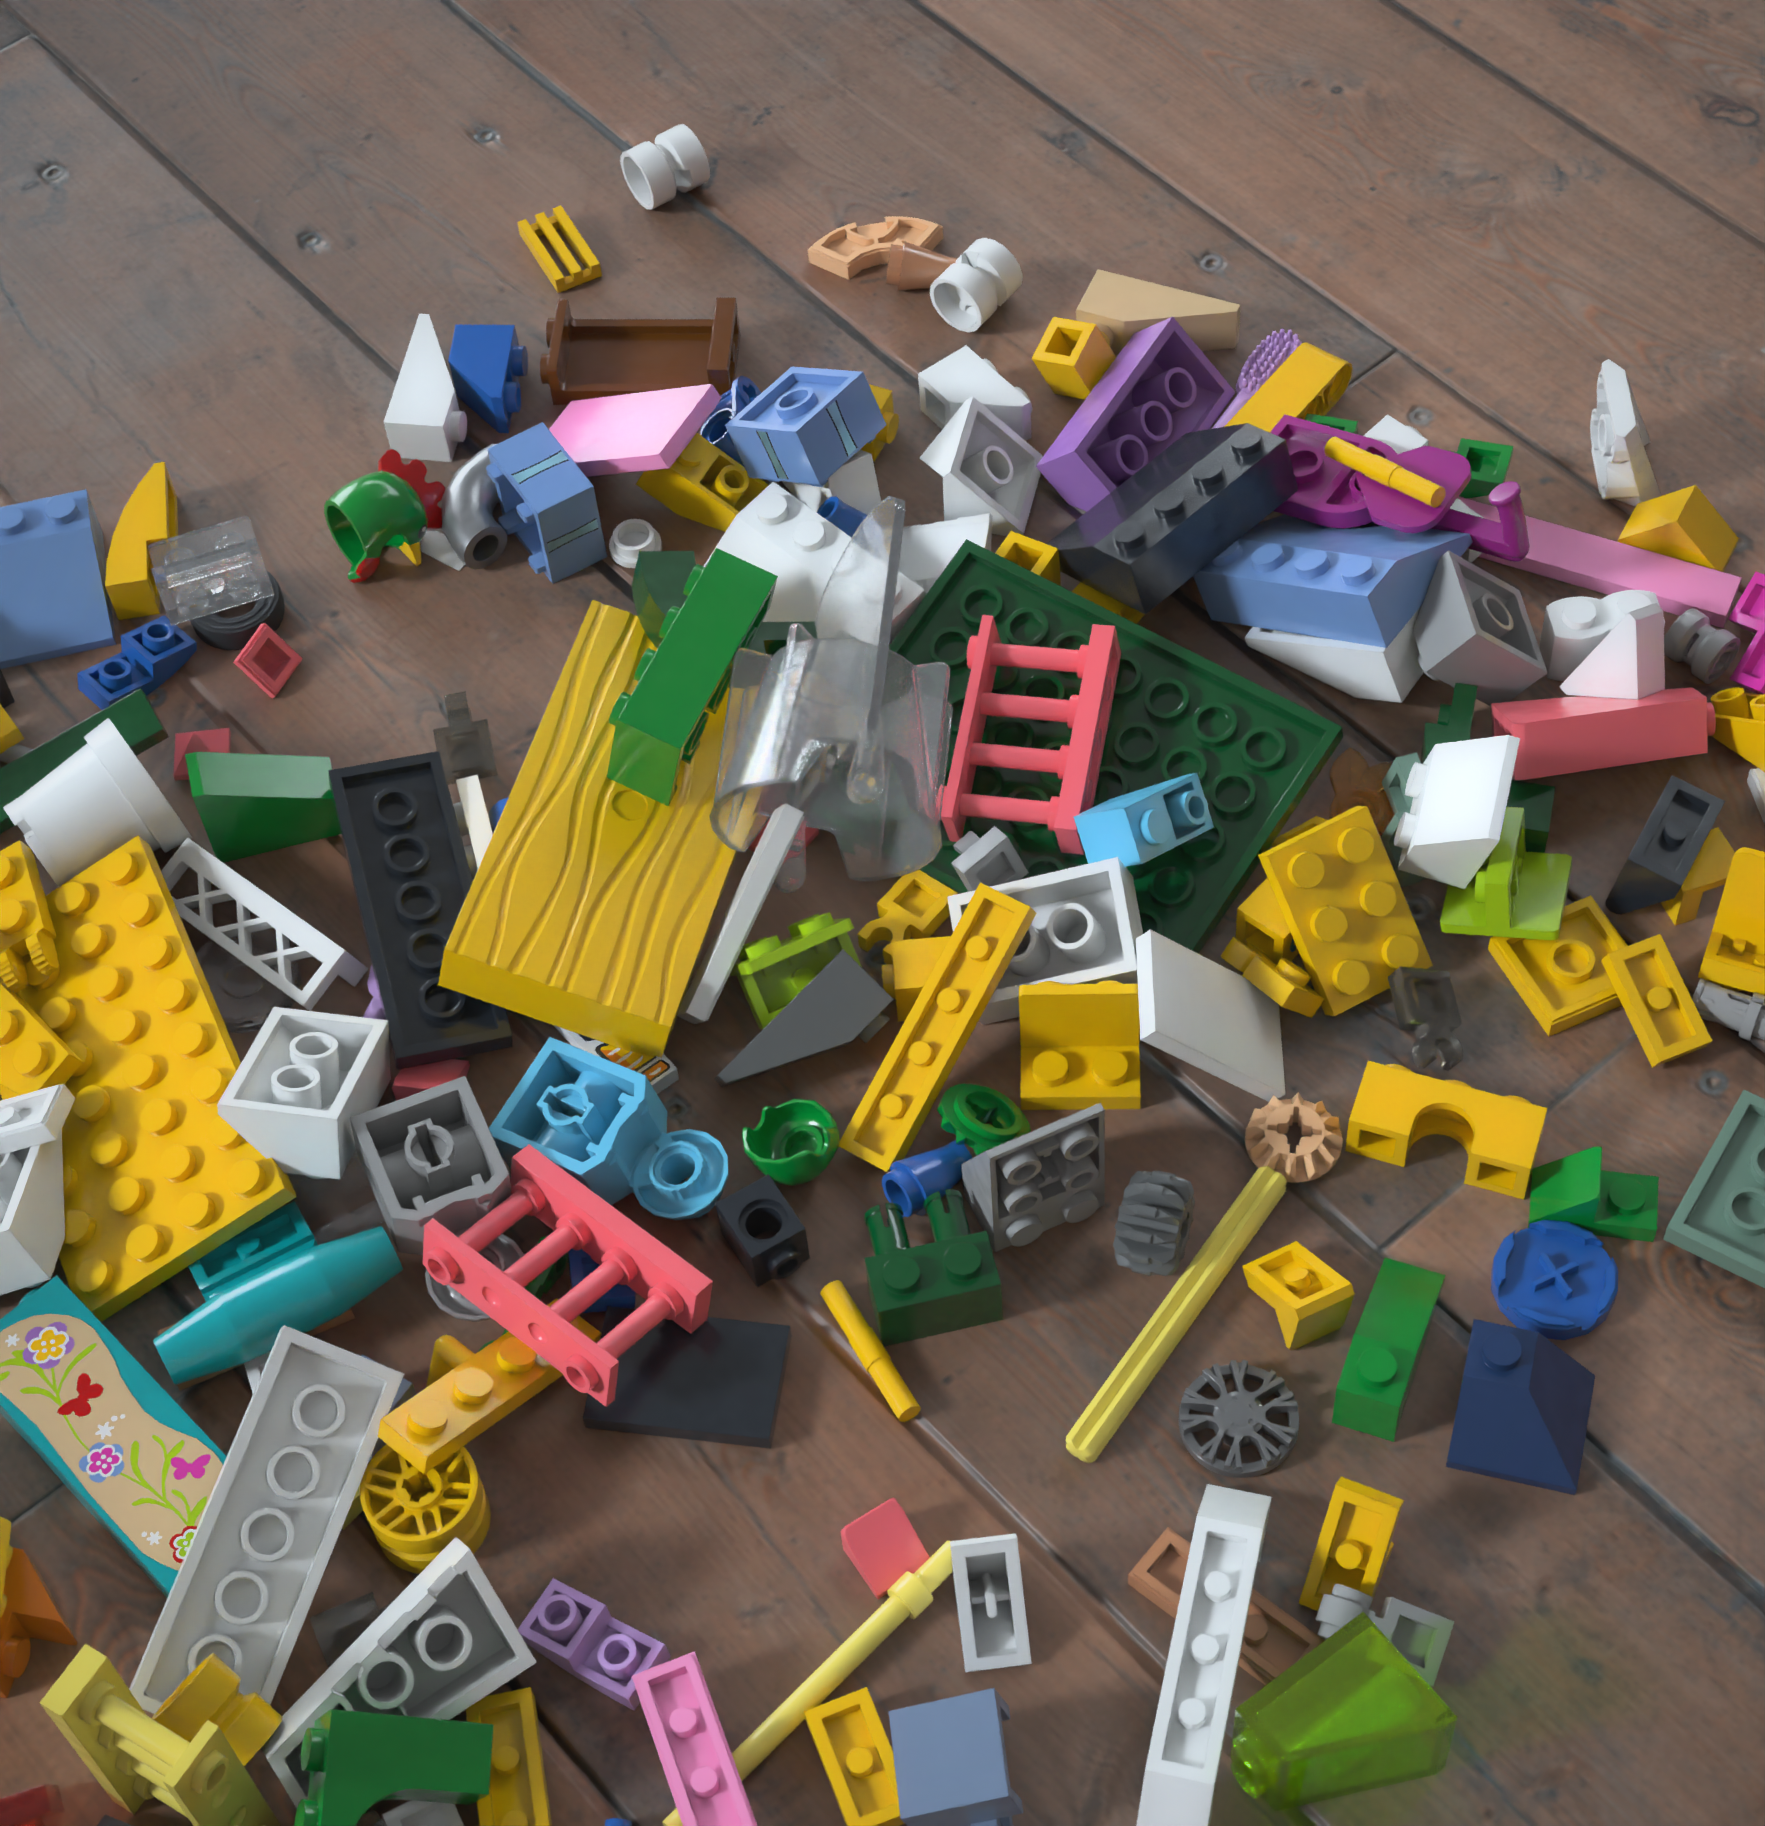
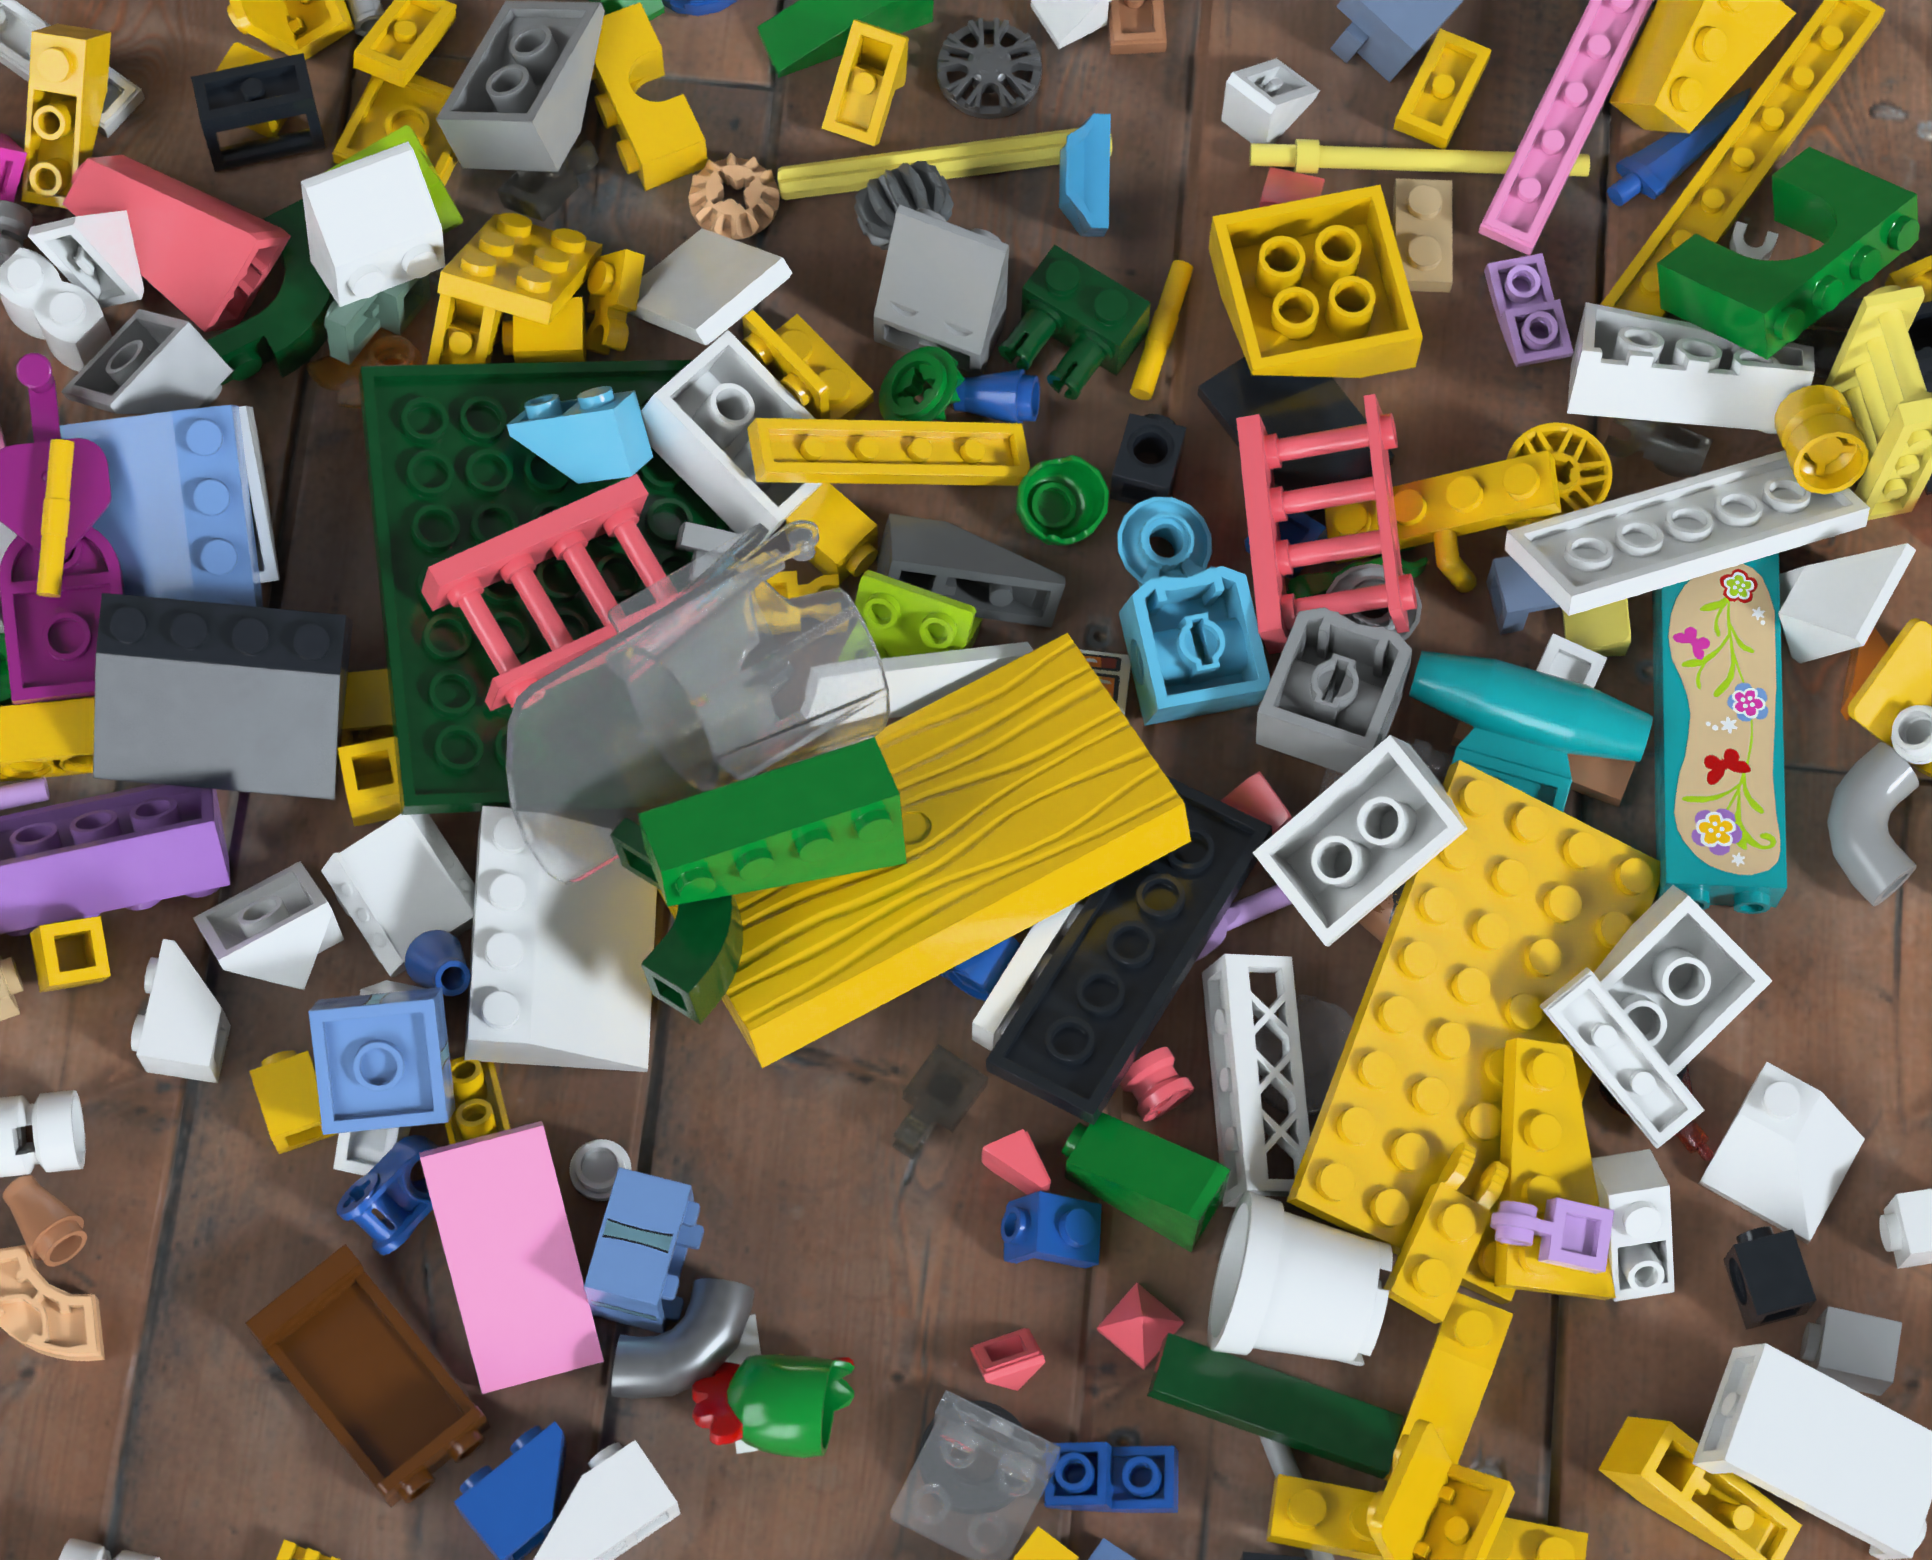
camera: 140 degrees left, 15 degrees up
(91, 1597) = (1838, 601): none -> white slope
(311, 732) = (1052, 1230): none -> blue bracket
(321, 866) = (1156, 1084): none -> coral wheel
(365, 744) = (1017, 1162): none -> coral slope
(748, 1628) = (1424, 232): none -> tan plate
(770, 1463) = (1317, 287): none -> yellow slope
(1044, 1371) = (1086, 176): none -> dark azure slope
(1521, 1031) = (525, 87): none -> light grey slope

